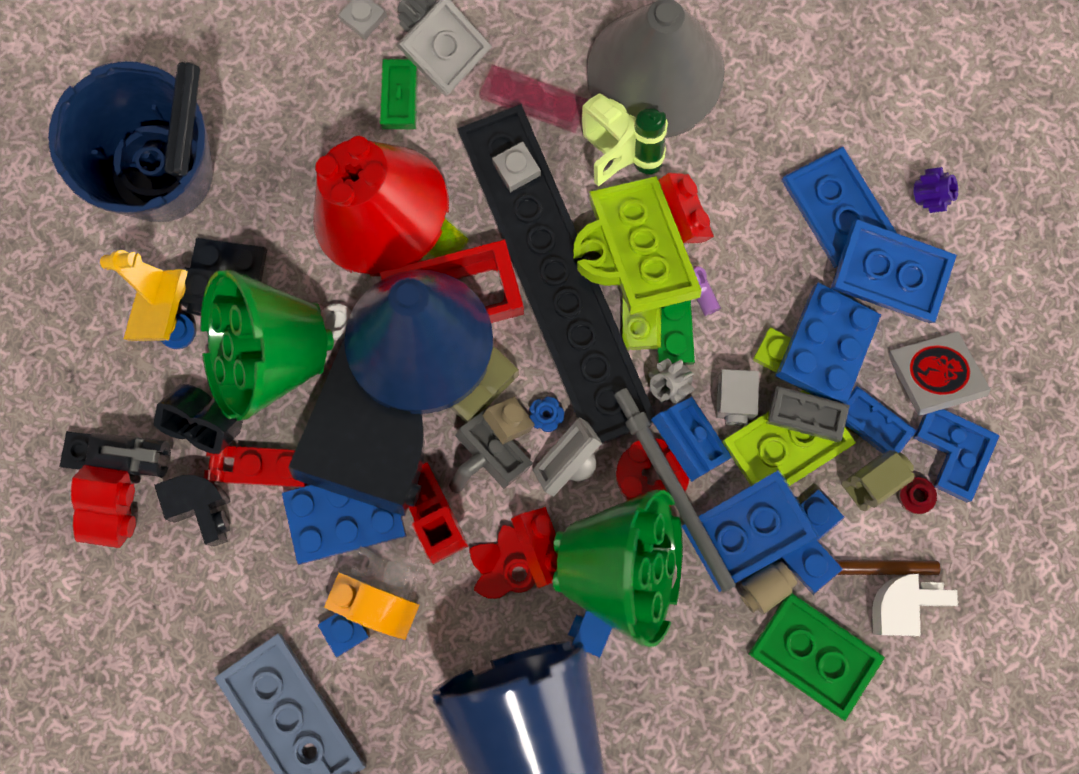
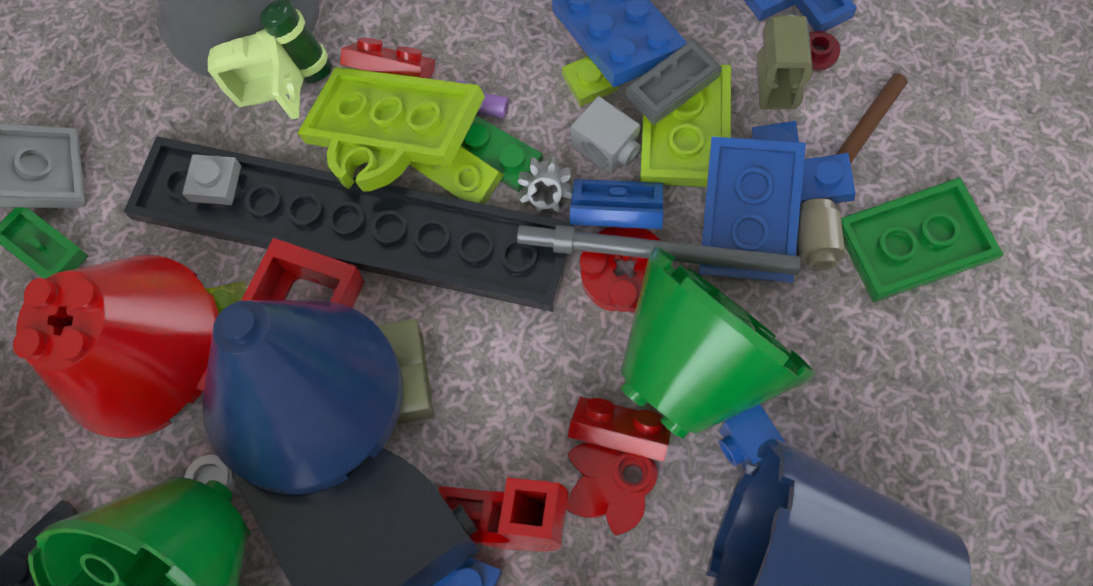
camera: 50 degrees left, 10 degrees down
(502, 461) = (477, 409): dark grey plate -> none
(508, 420) = (460, 368): dark tan plate -> none
(537, 98) = (172, 119): clear pink plate -> none
(549, 423) = (484, 339): blue plate -> none
(569, 458) = (548, 332): light grey tile -> none
(876, 423) = (728, 37): blue plate -> none
(898, 603) = (916, 129): white brick -> none

